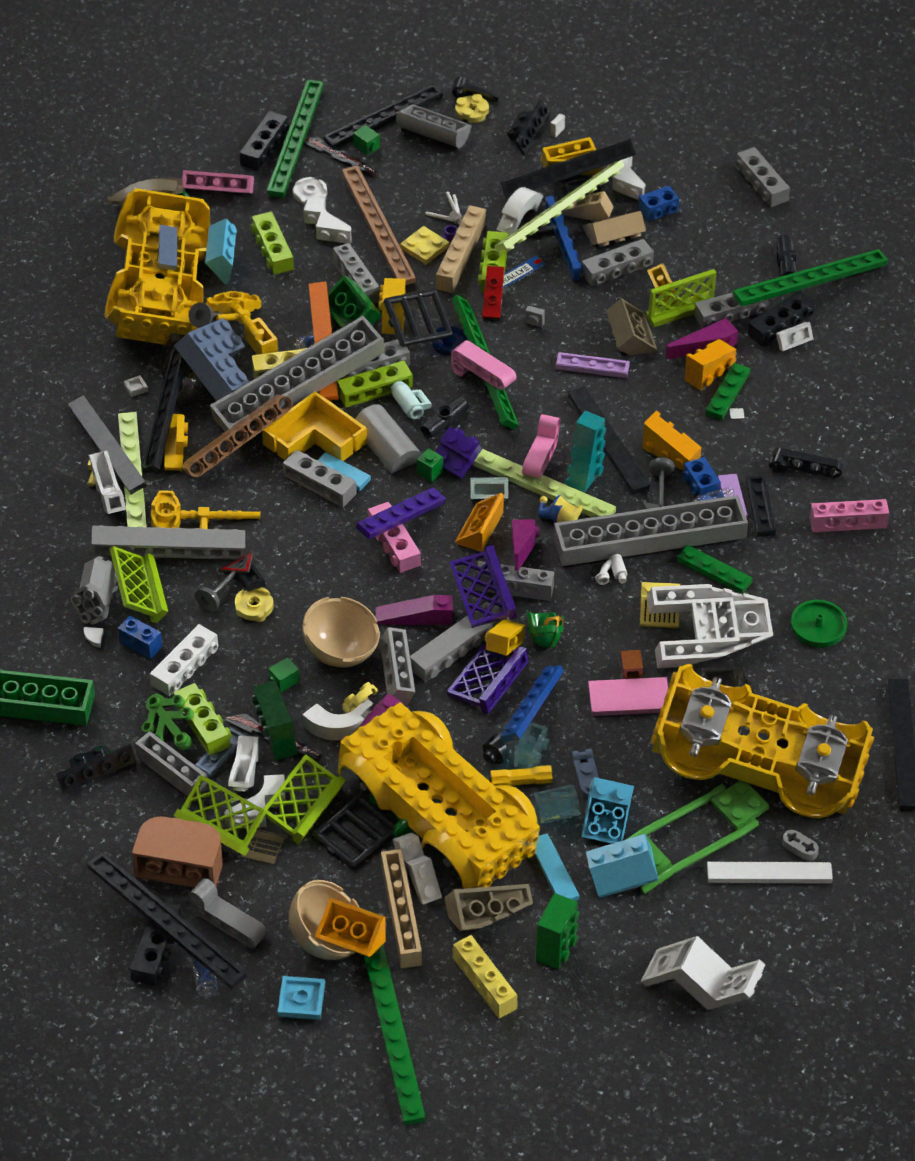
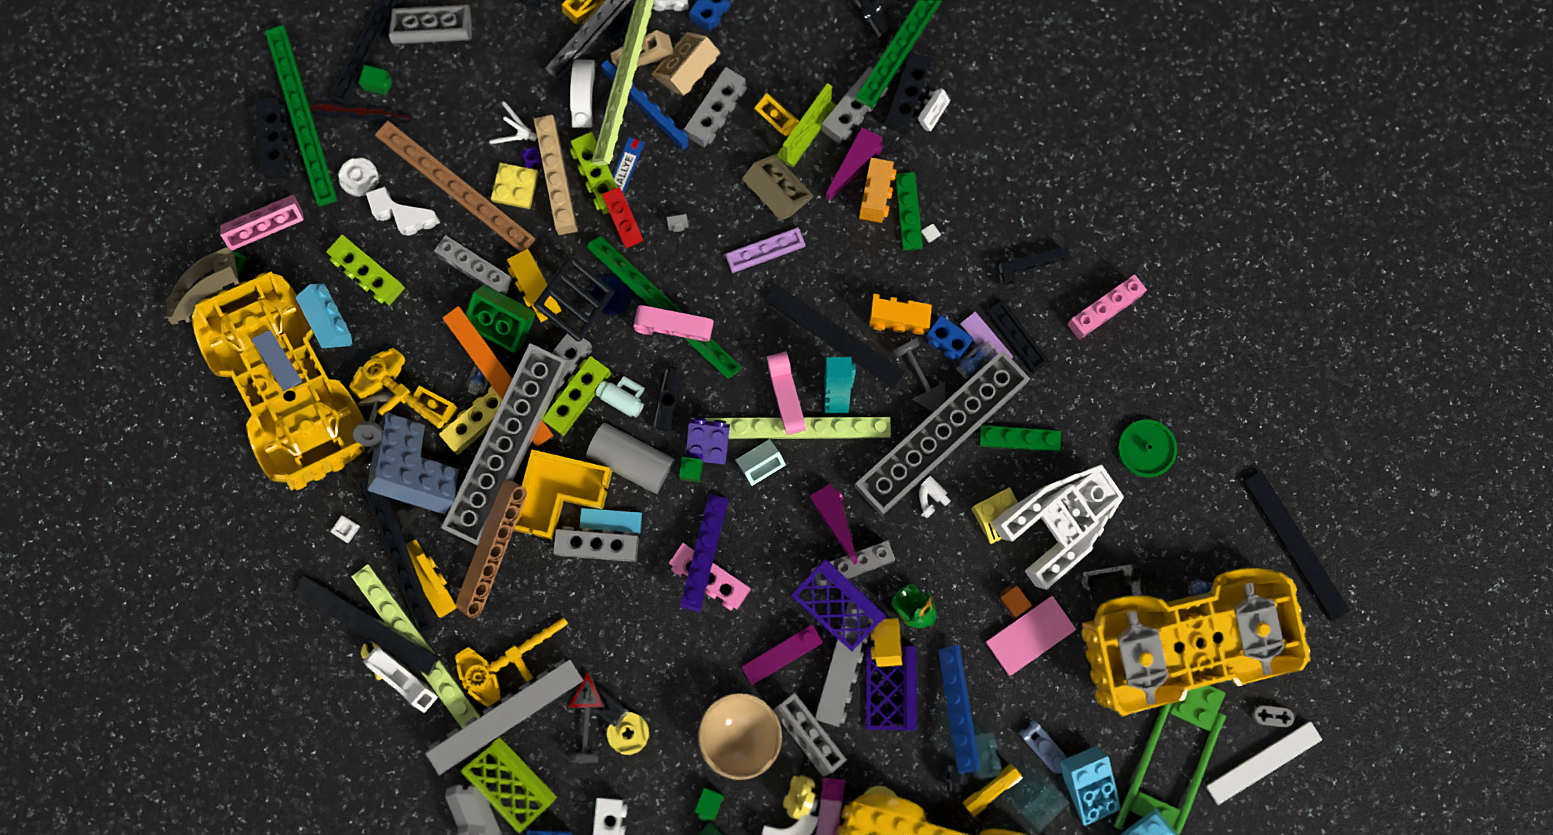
camera: 30 degrees left, 30 degrees up
(481, 523) = (777, 511): light orange slope -> none
(559, 510) = (848, 454): piece -> none

